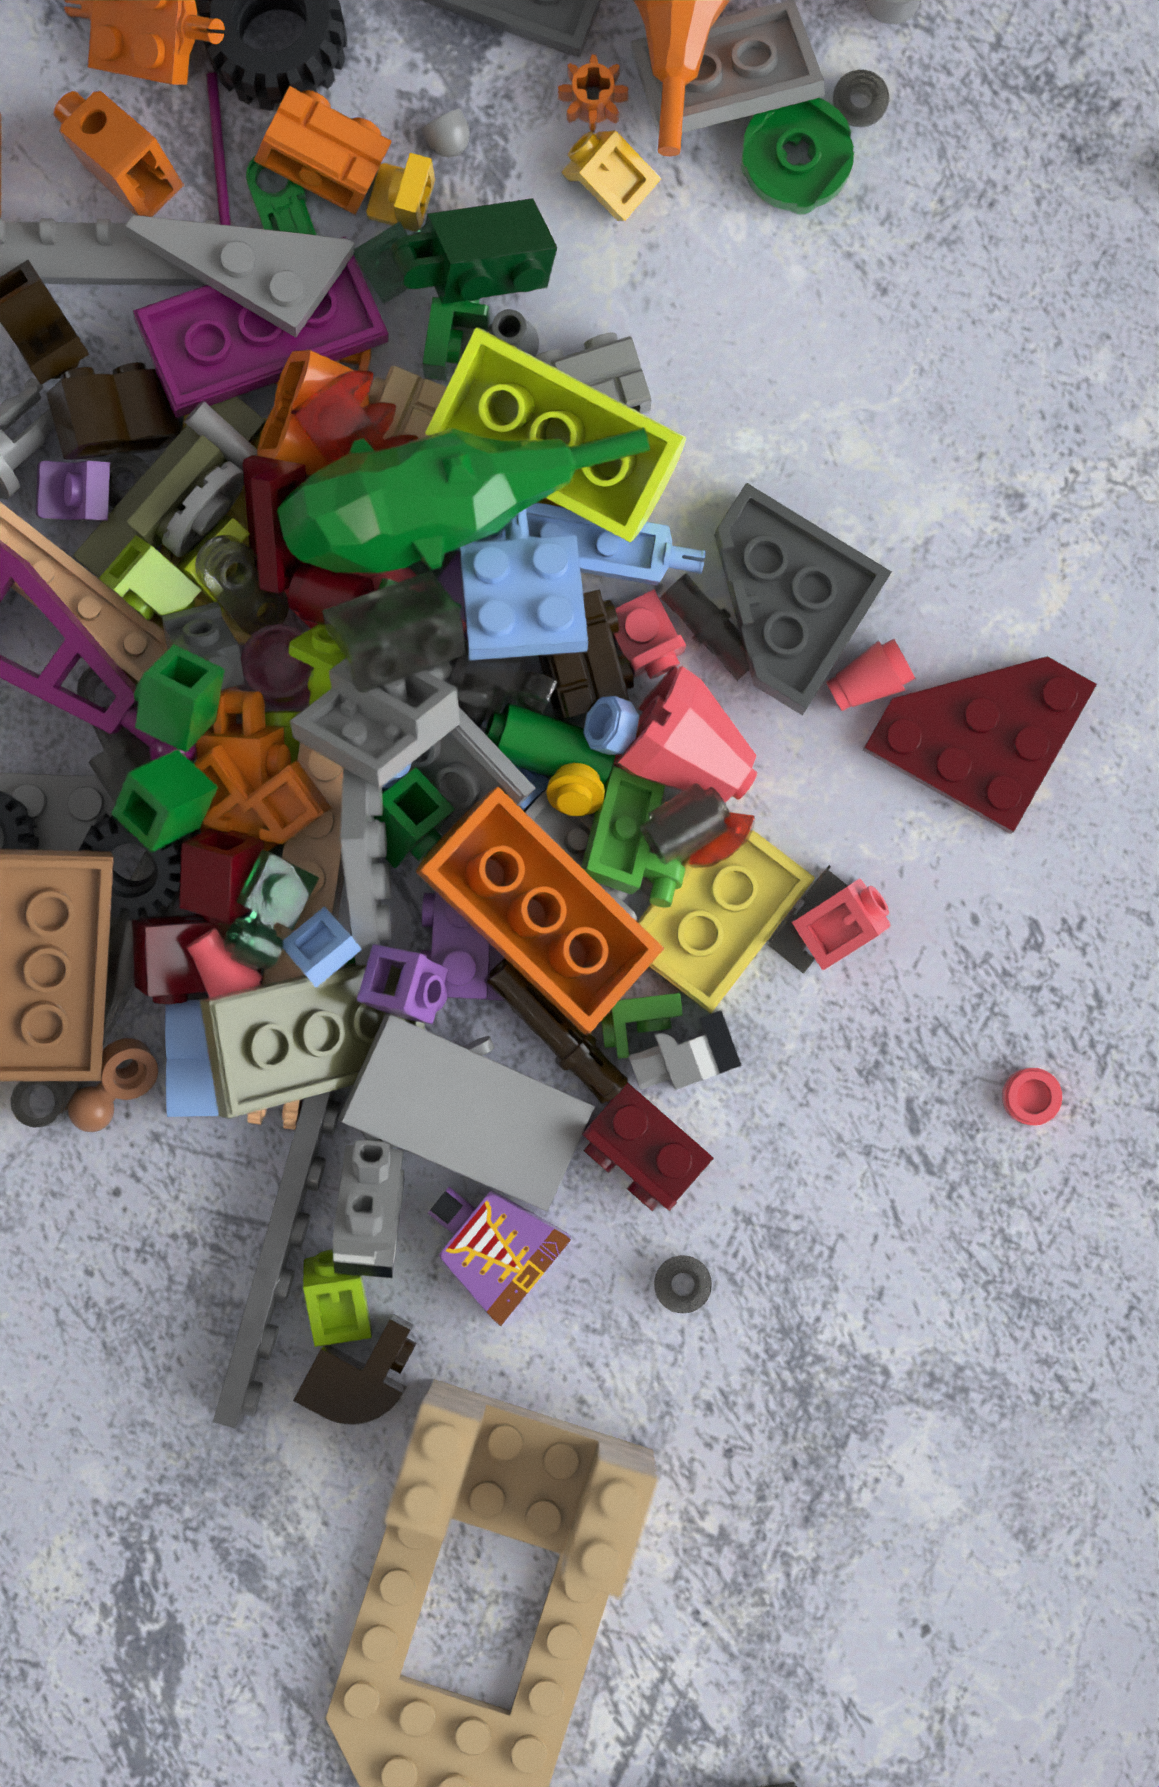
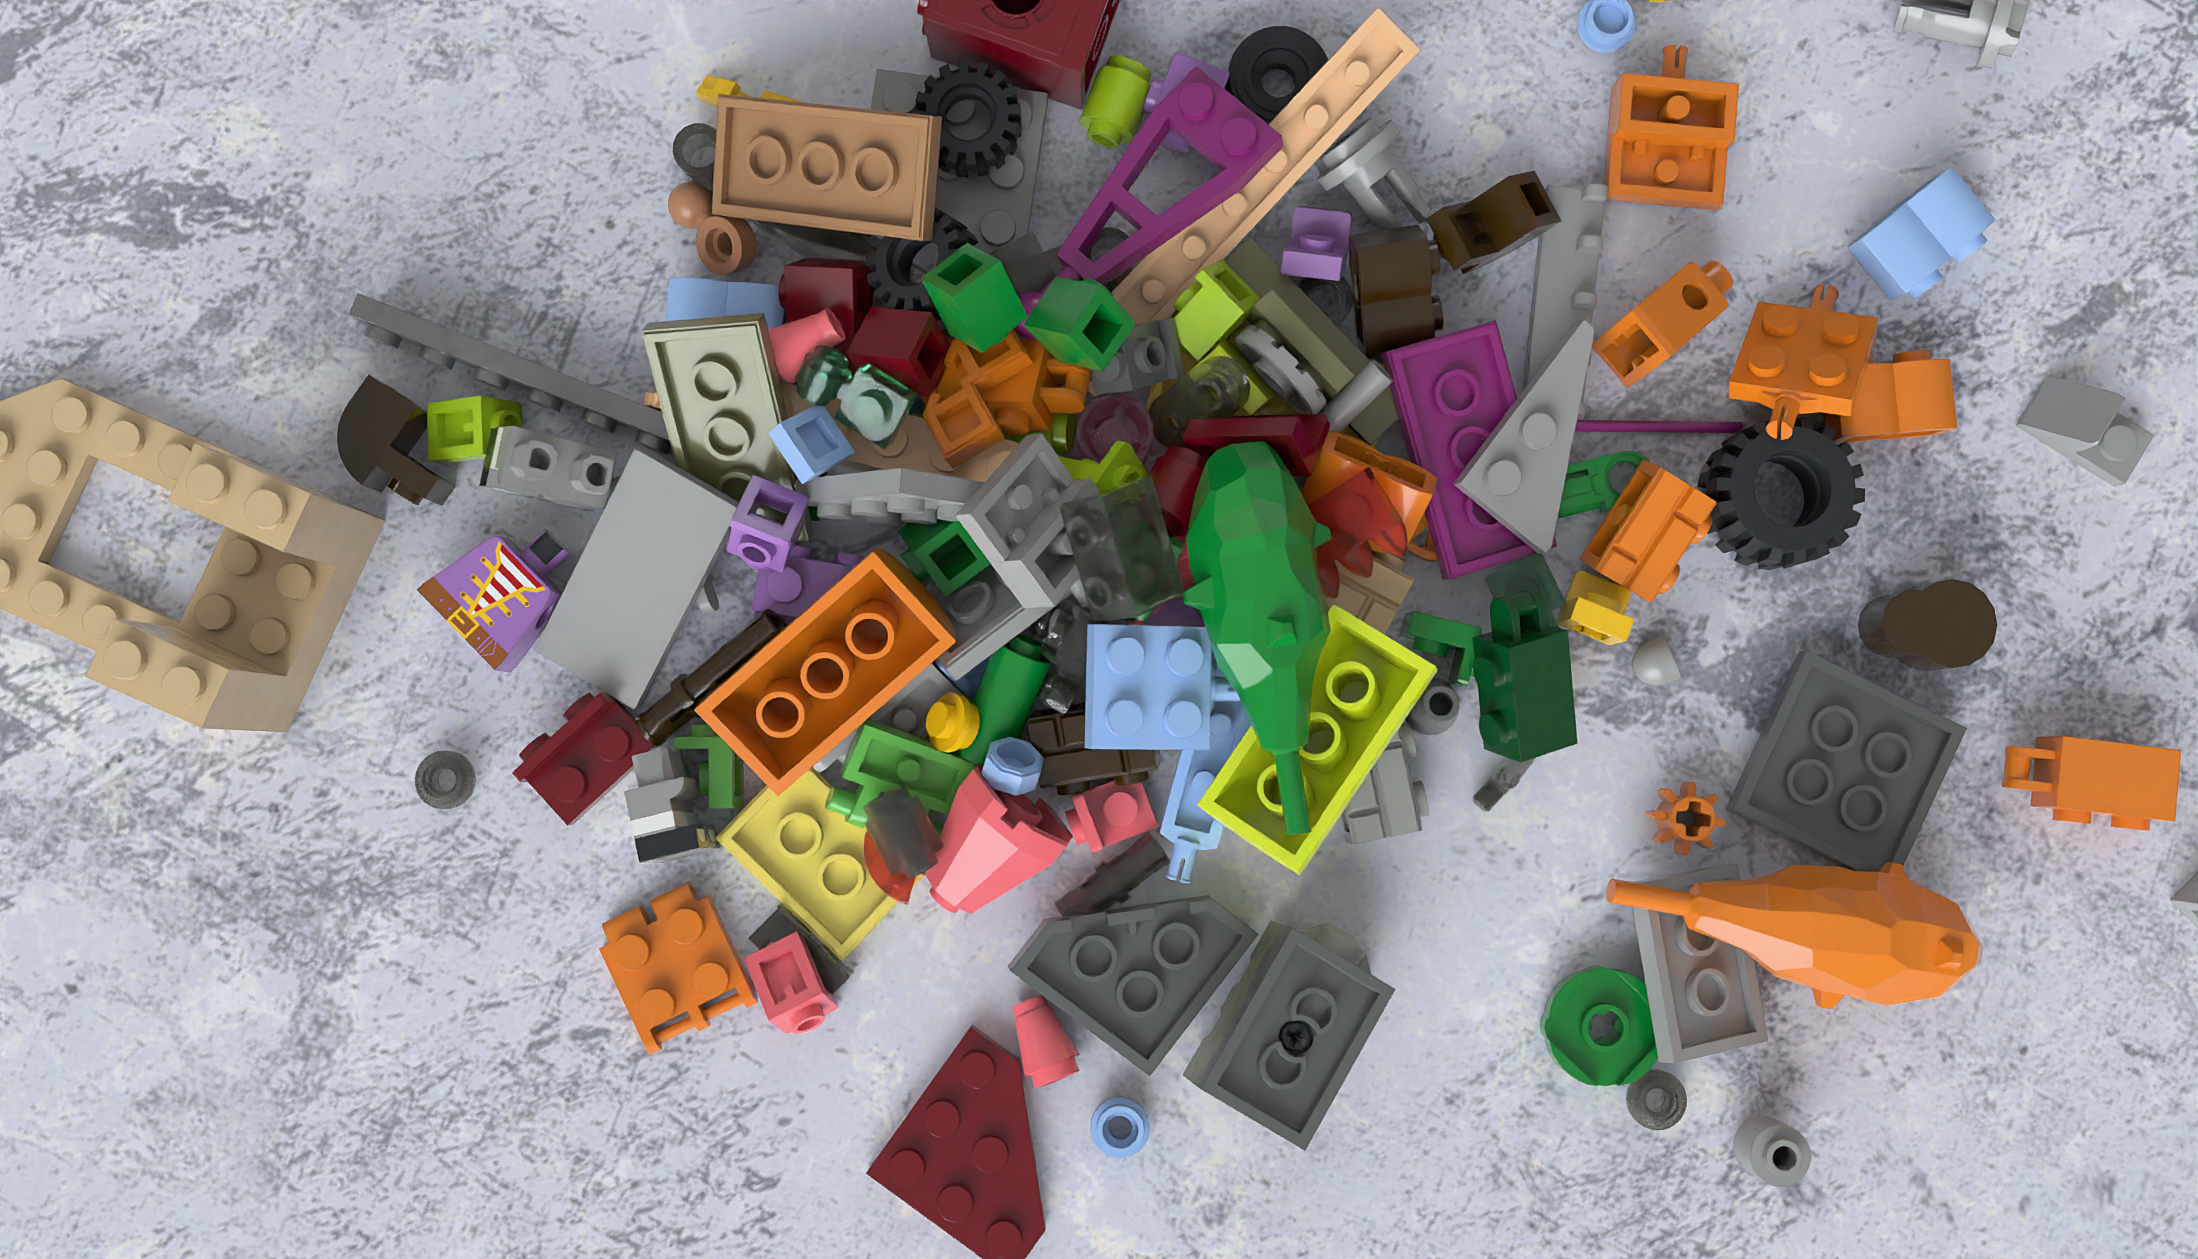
camera: 90 degrees right, 0 degrees up
(578, 271) = (1500, 783): none -> clear smoke helmet
(611, 172) = (1599, 828): yellow bracket -> none
(831, 439) = (1291, 1029): none -> dark grey piece
(837, 1040) = (674, 965): none -> orange plate
(955, 584) = (1120, 1145): none -> light blue plate
(1032, 1096) = (593, 1160): coral tile -> none

